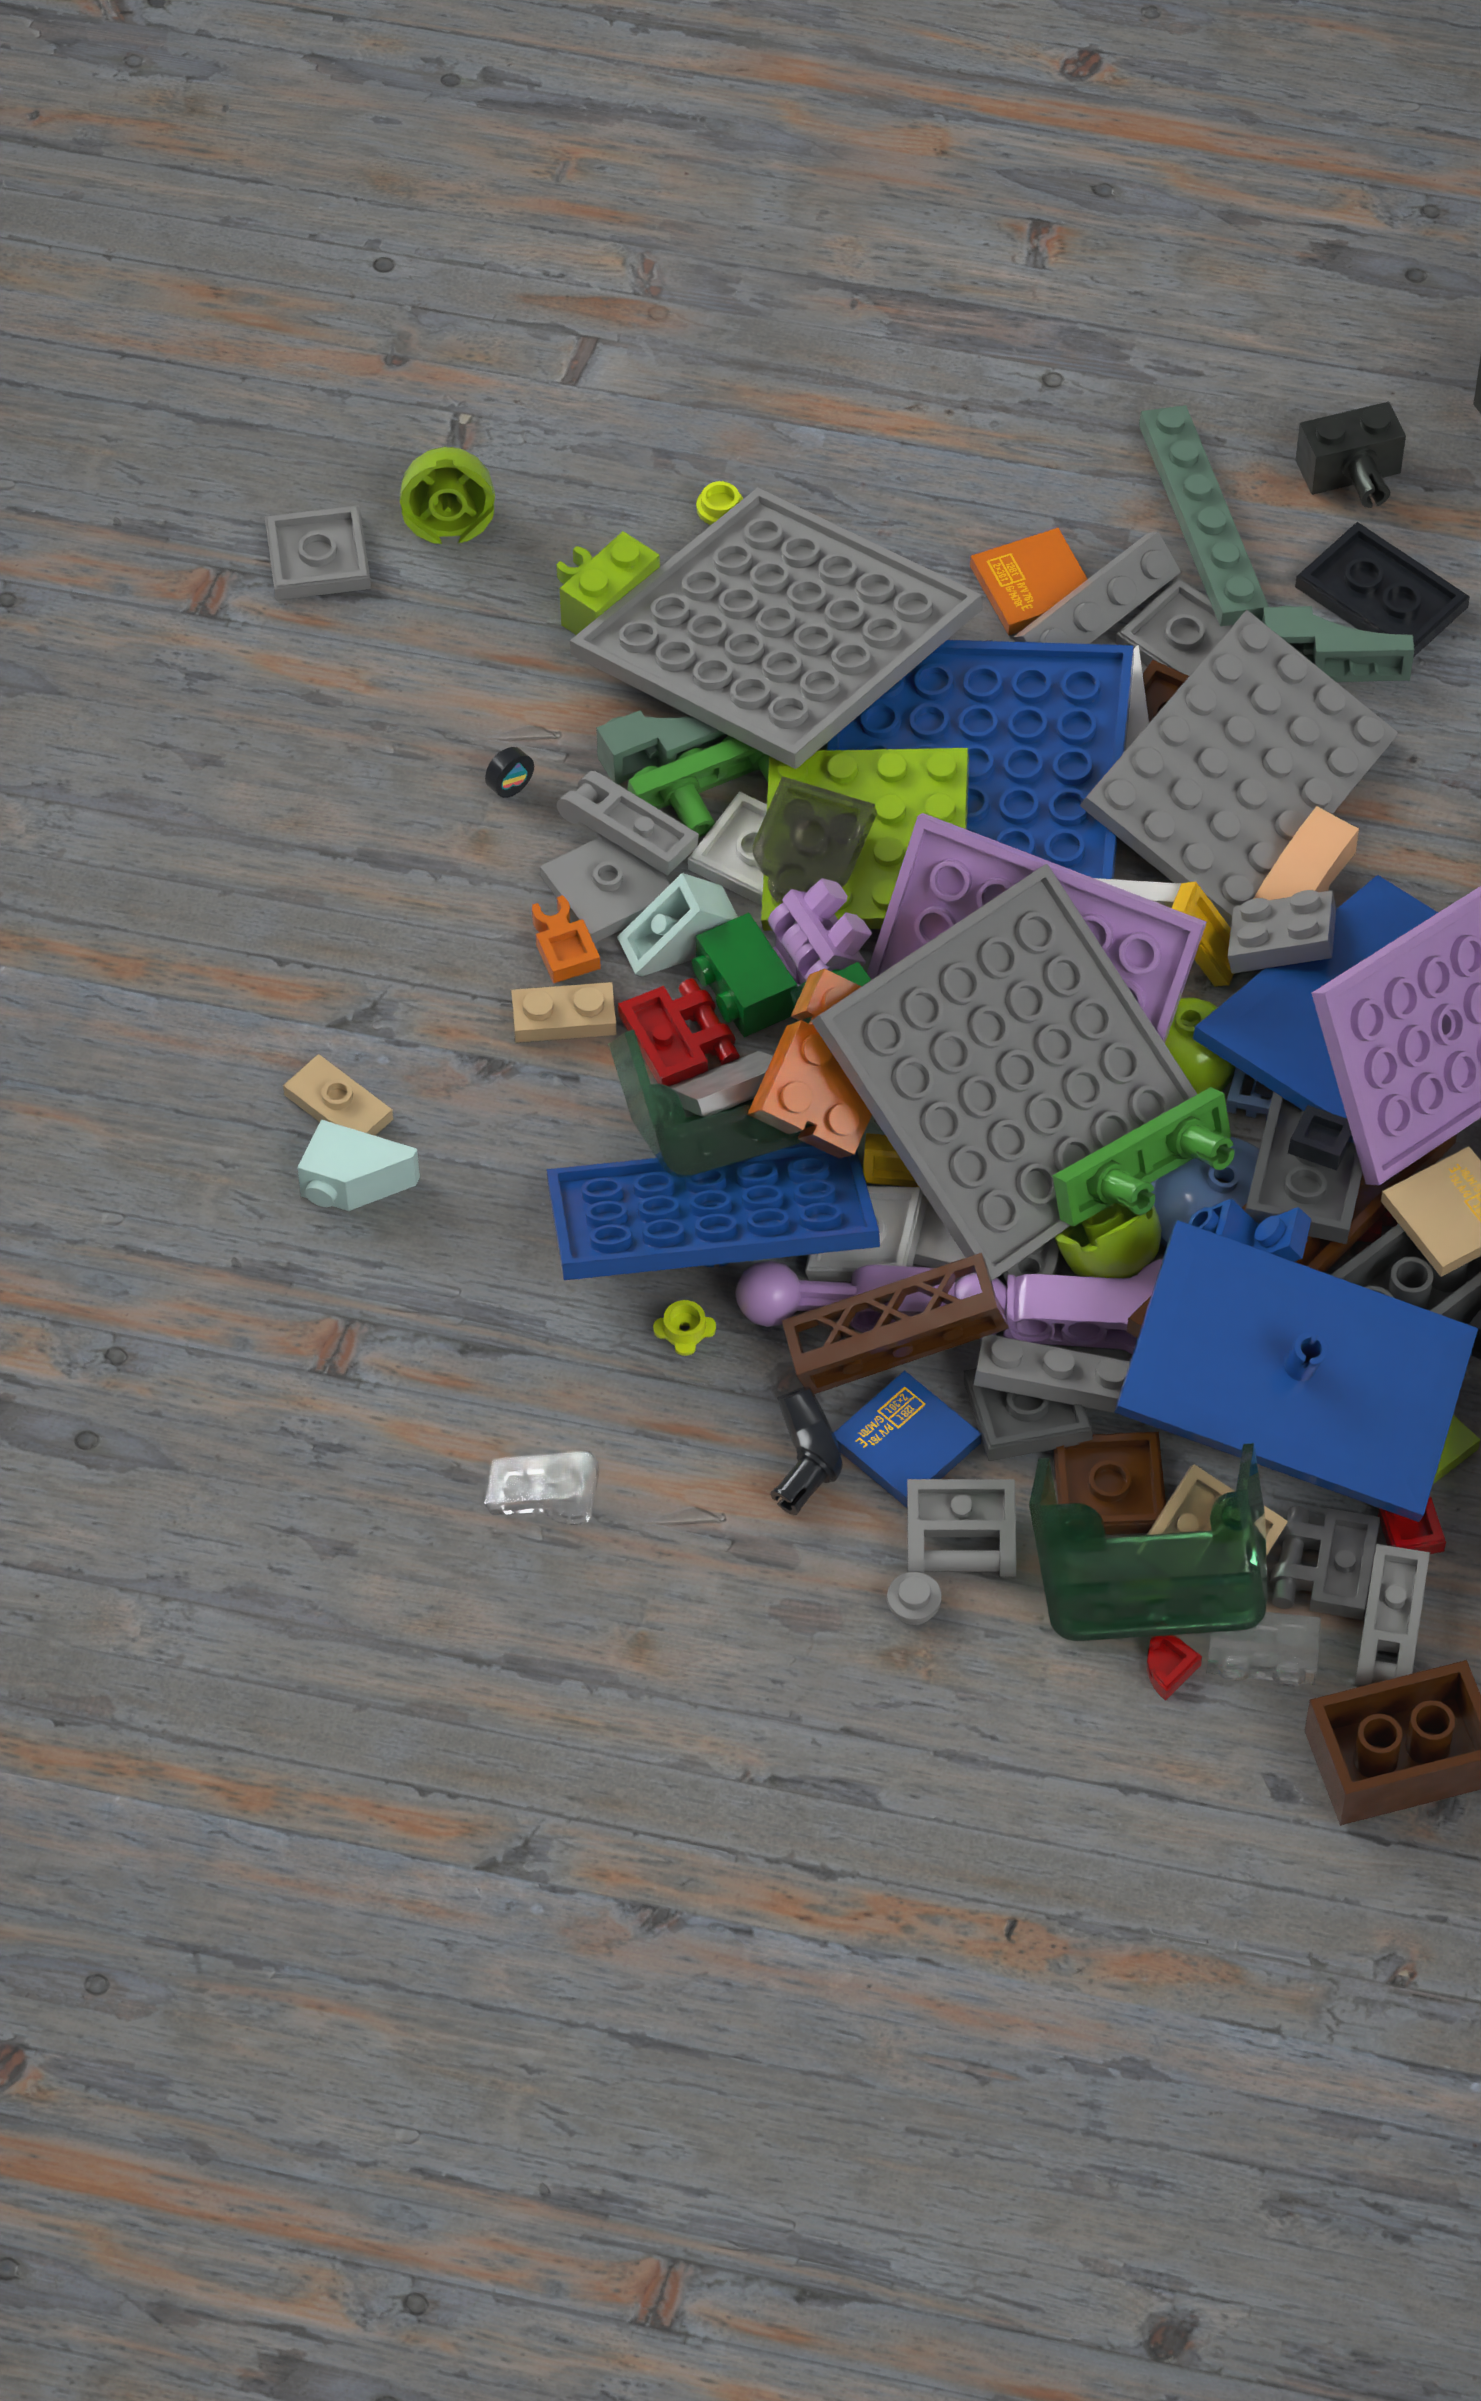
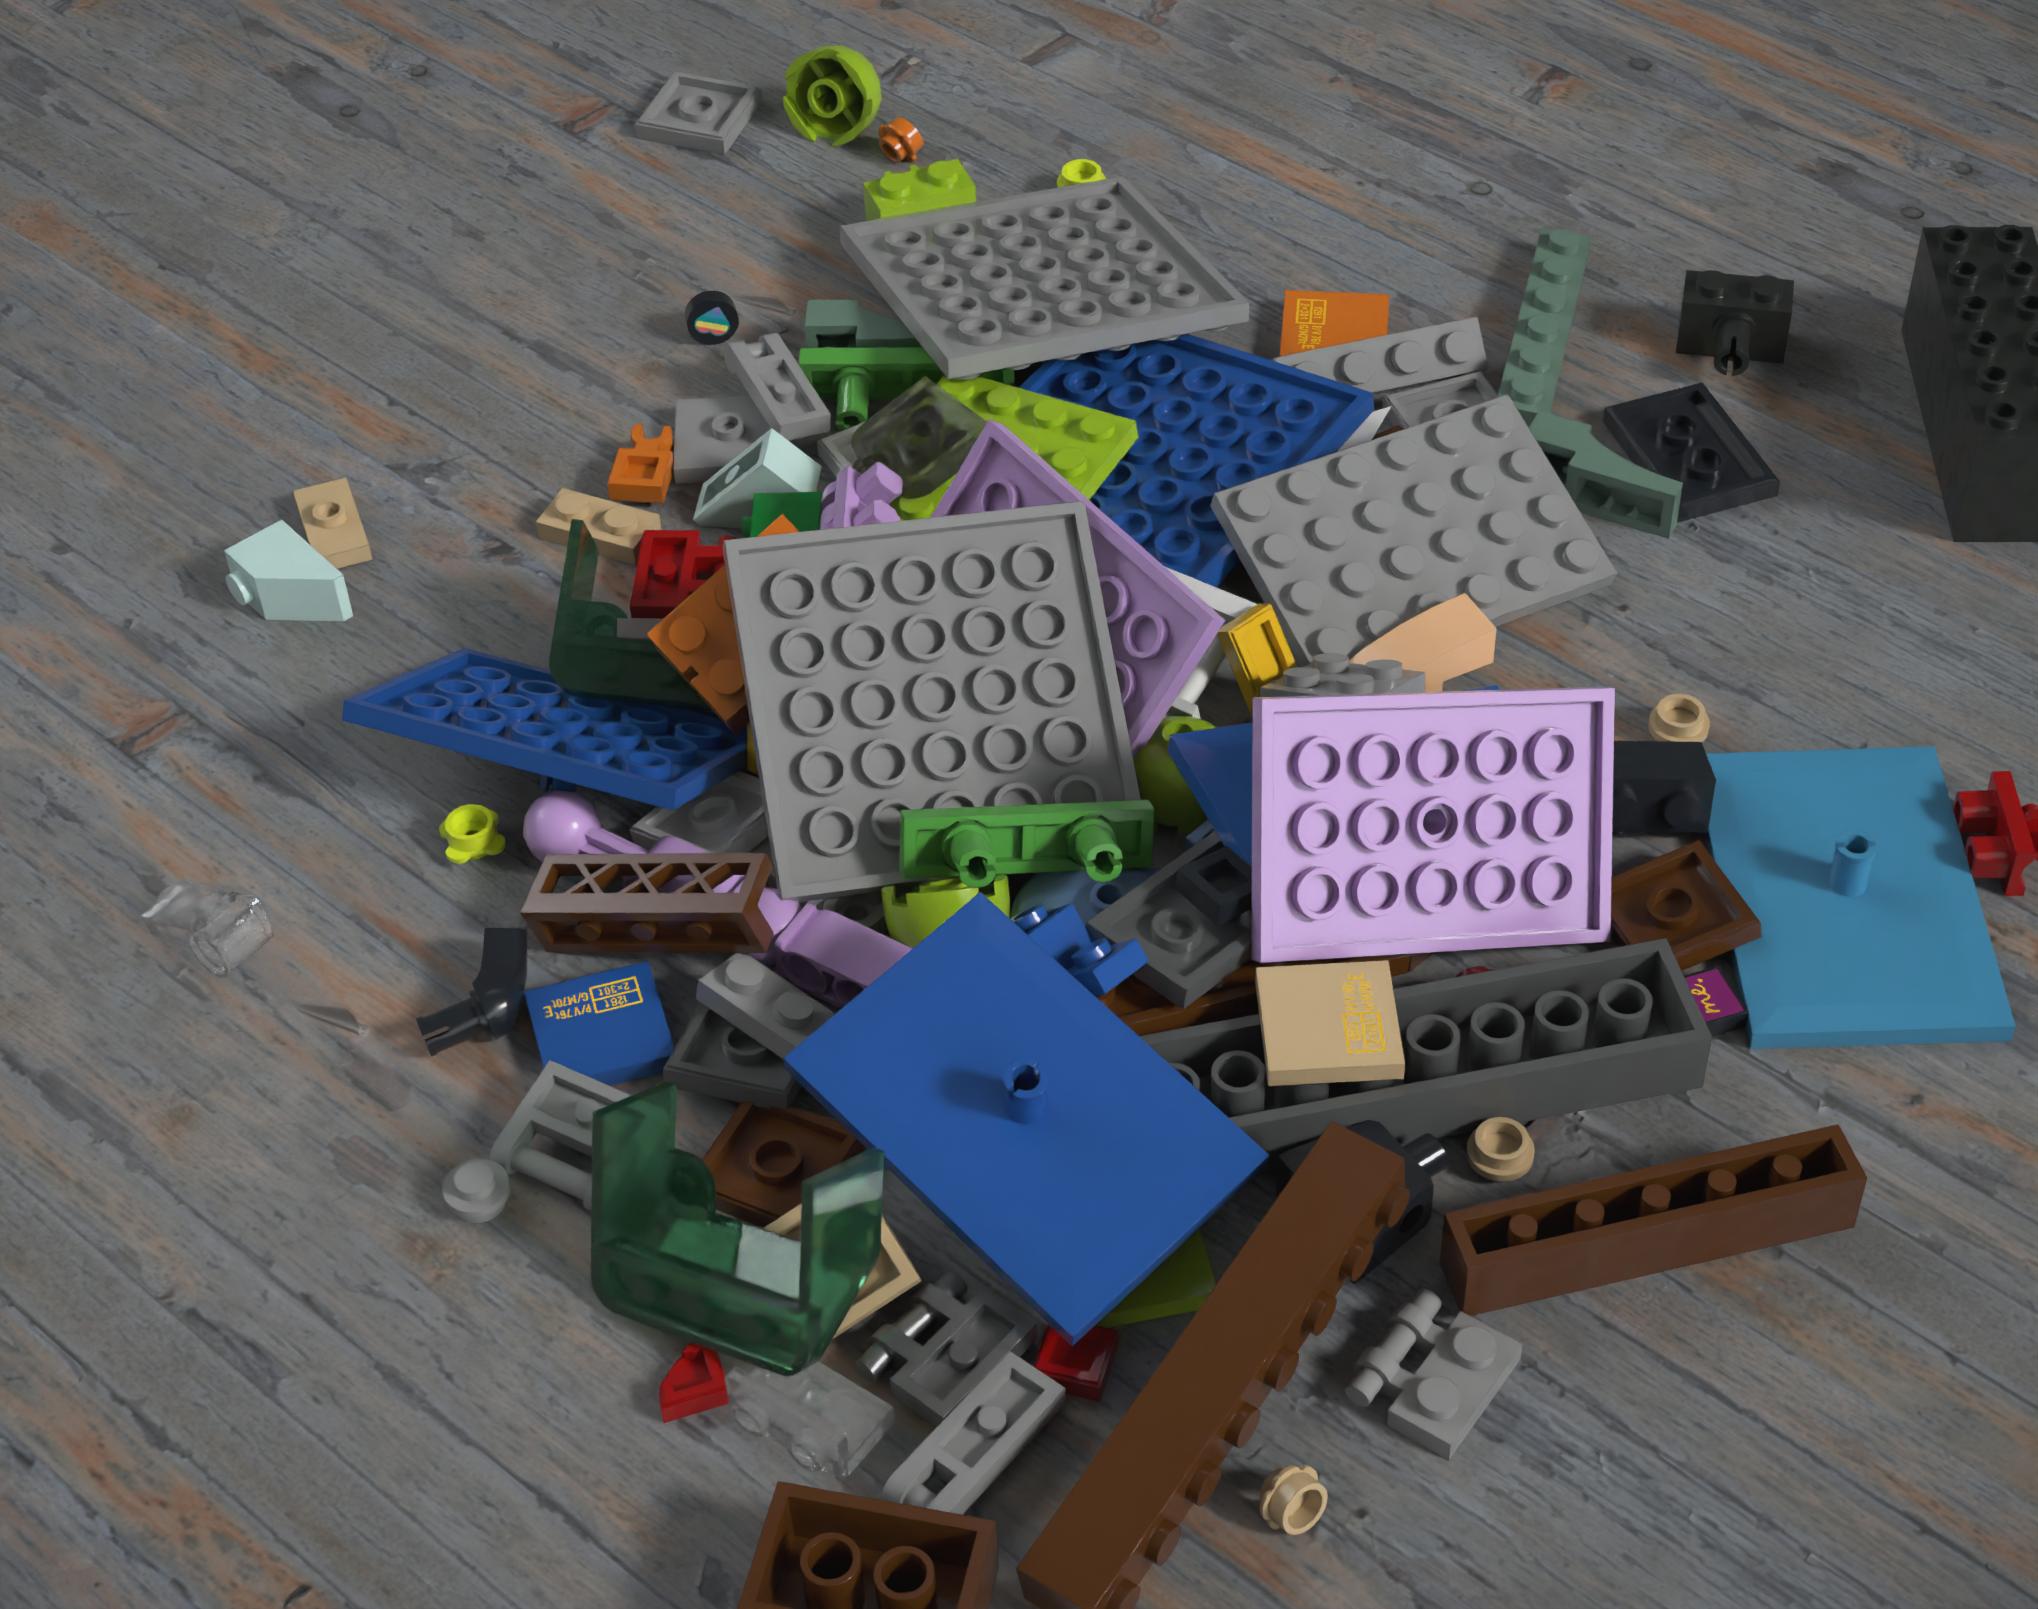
camera: 30 degrees right, 10 degrees down
(530, 519) = (900, 140): none -> orange plate

